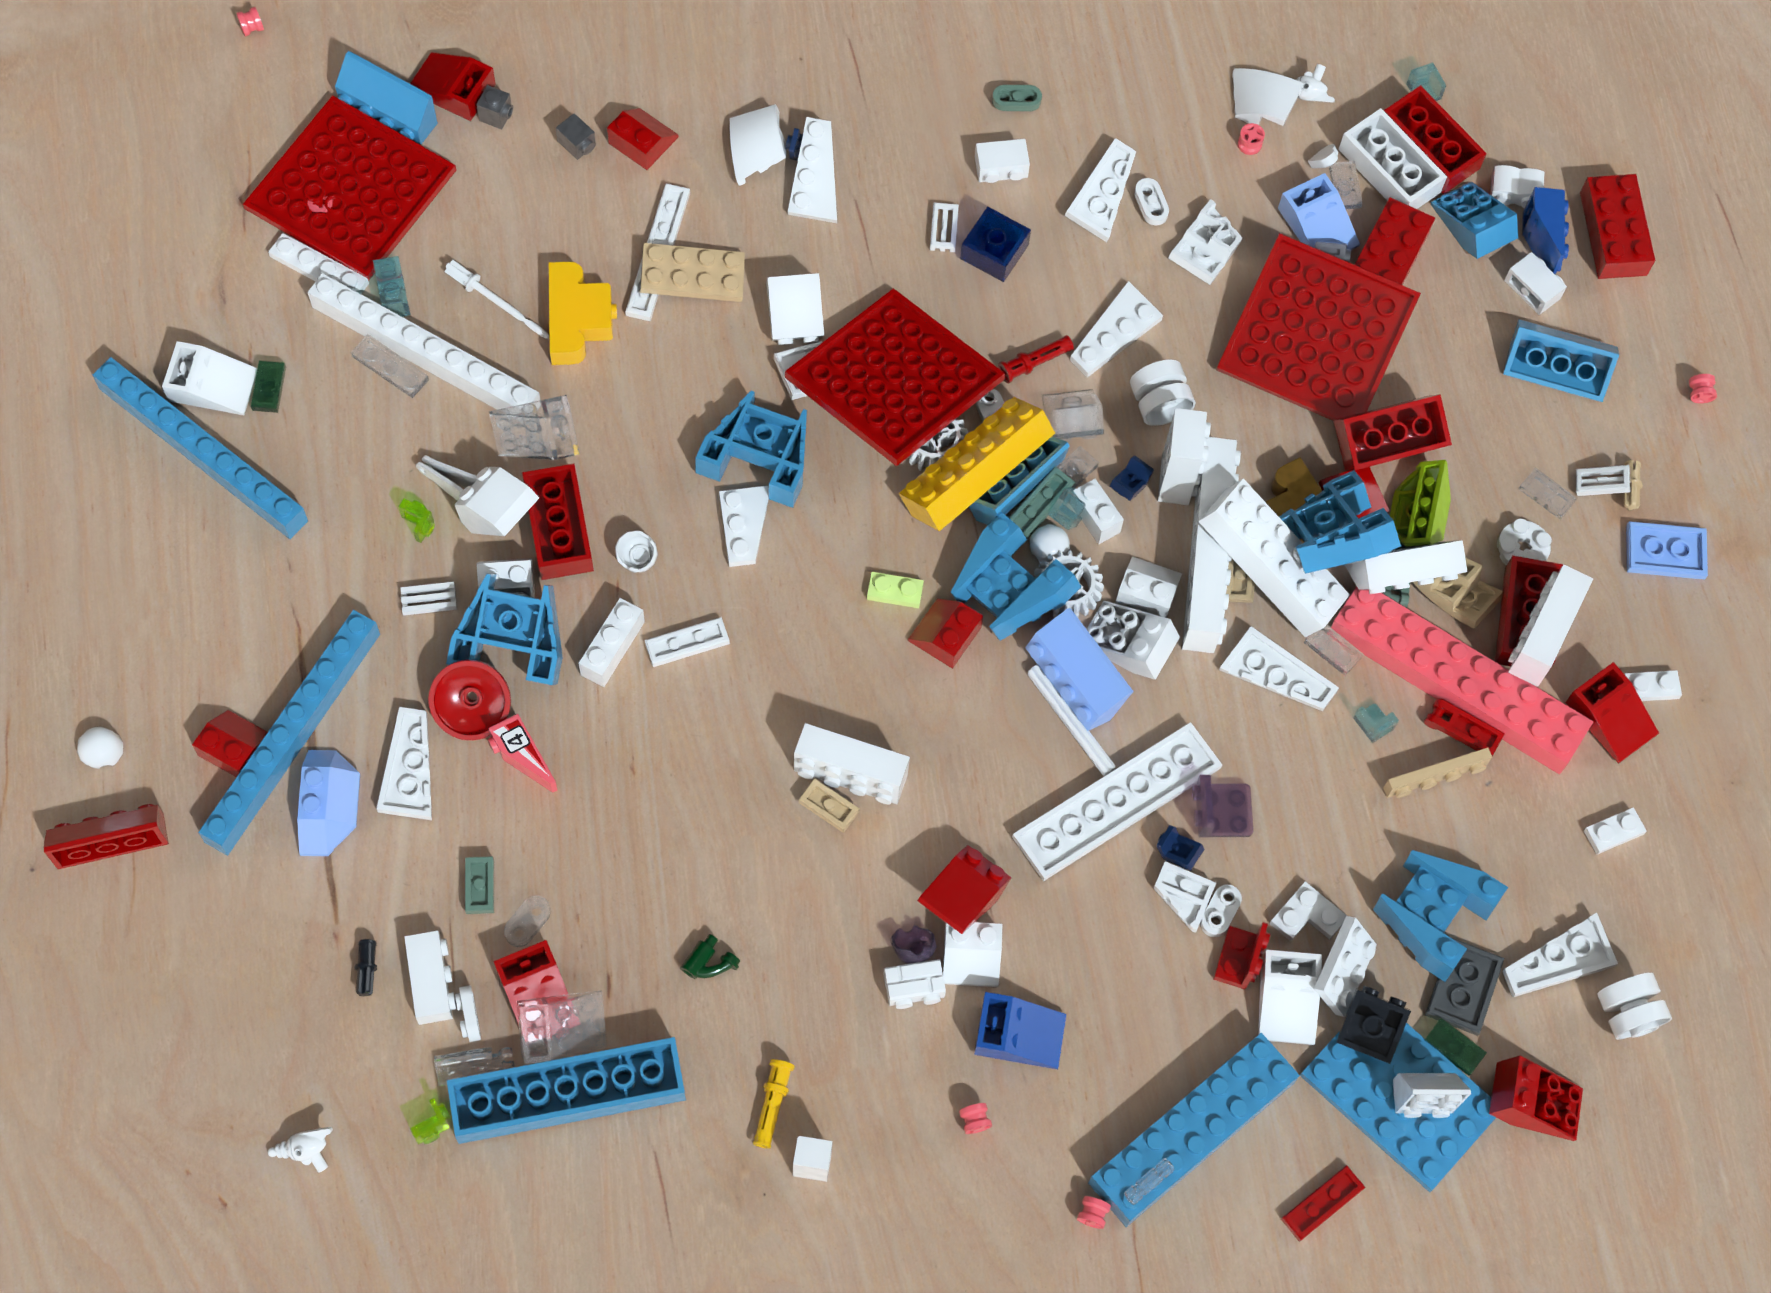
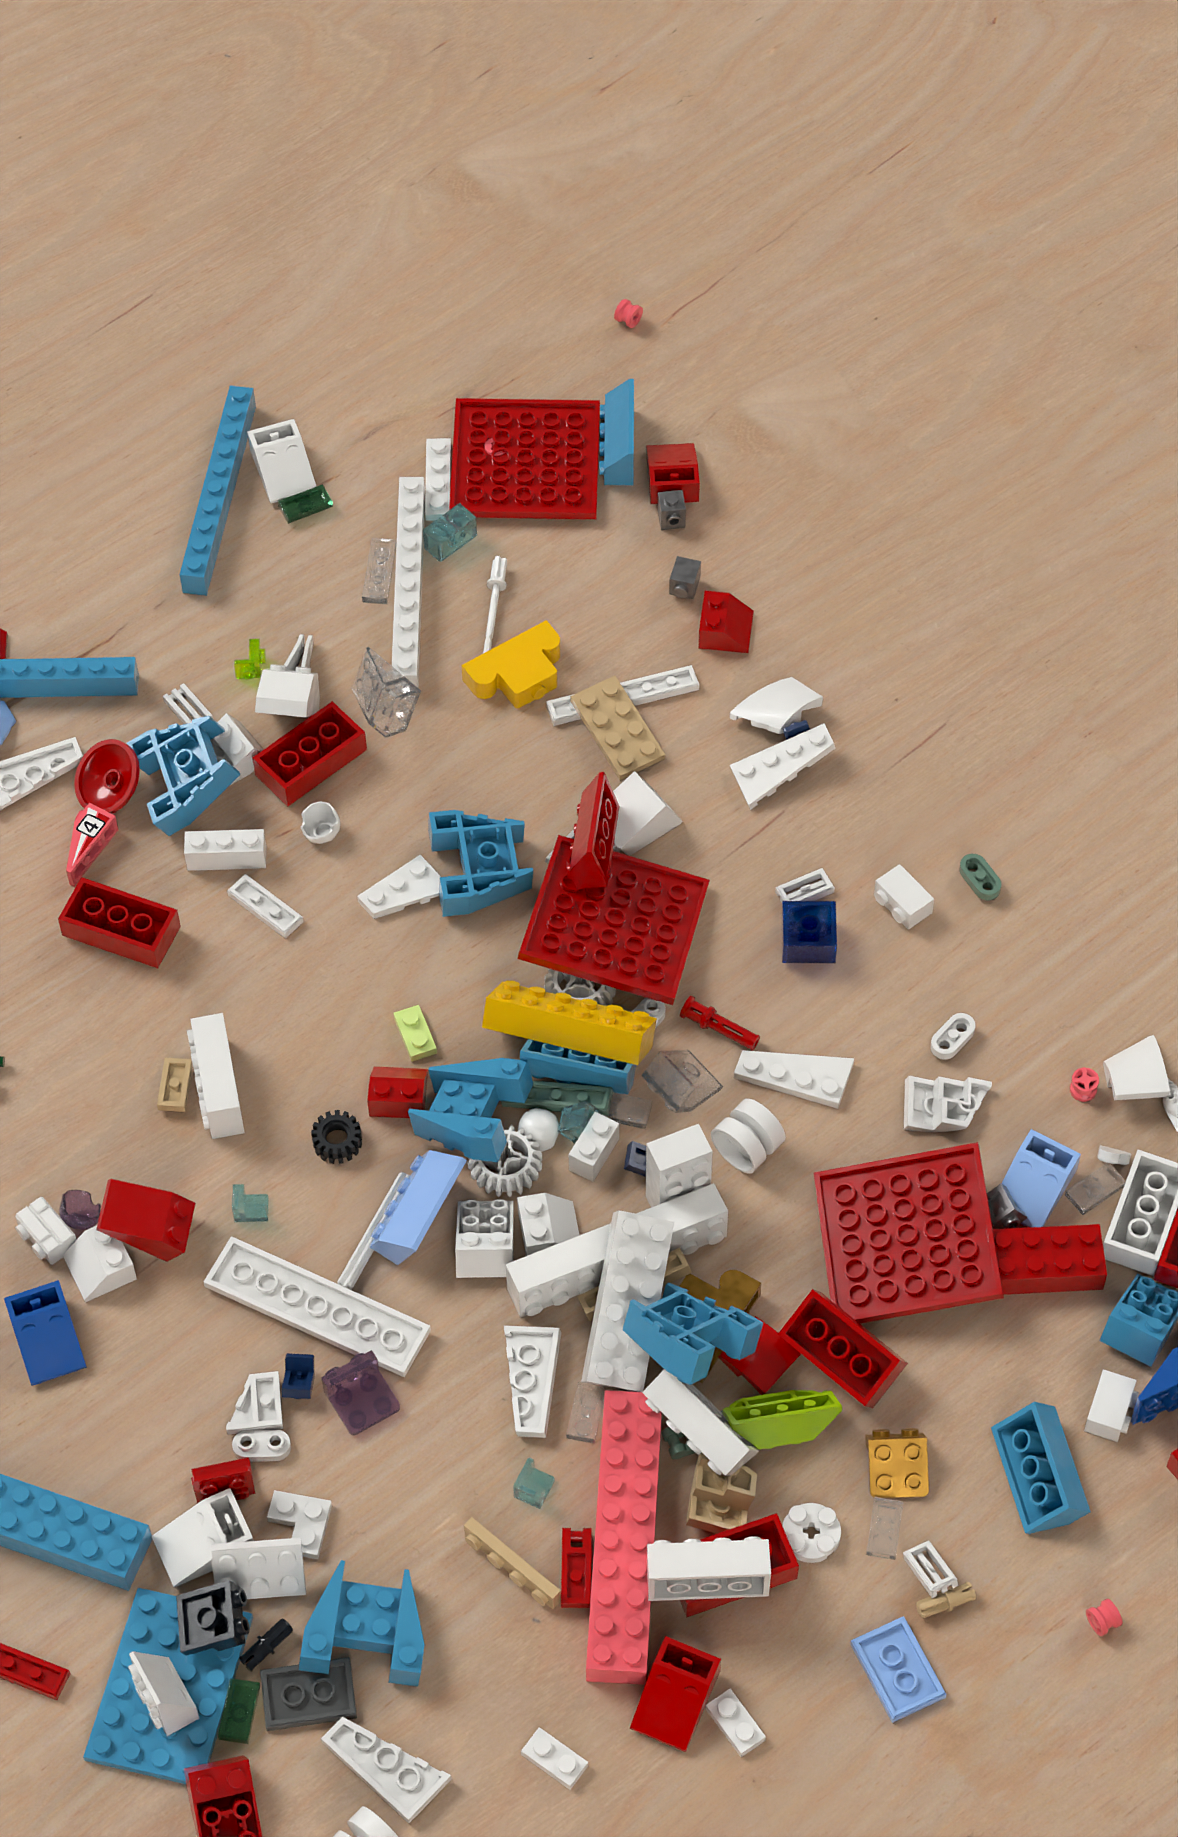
camera: 65 degrees right, 10 degrees down
(634, 766) = (119, 922): none -> red brick
(813, 341) = (594, 835): none -> red slope
(963, 717) = (333, 1123): none -> black tyre
(987, 805) = (249, 1207): none -> clear light blue panel
(1101, 194) = (932, 992): white wing -> none
(1406, 993) = (266, 1644): none -> black axle
(1502, 450) = (898, 1463): none -> pearl gold bracket

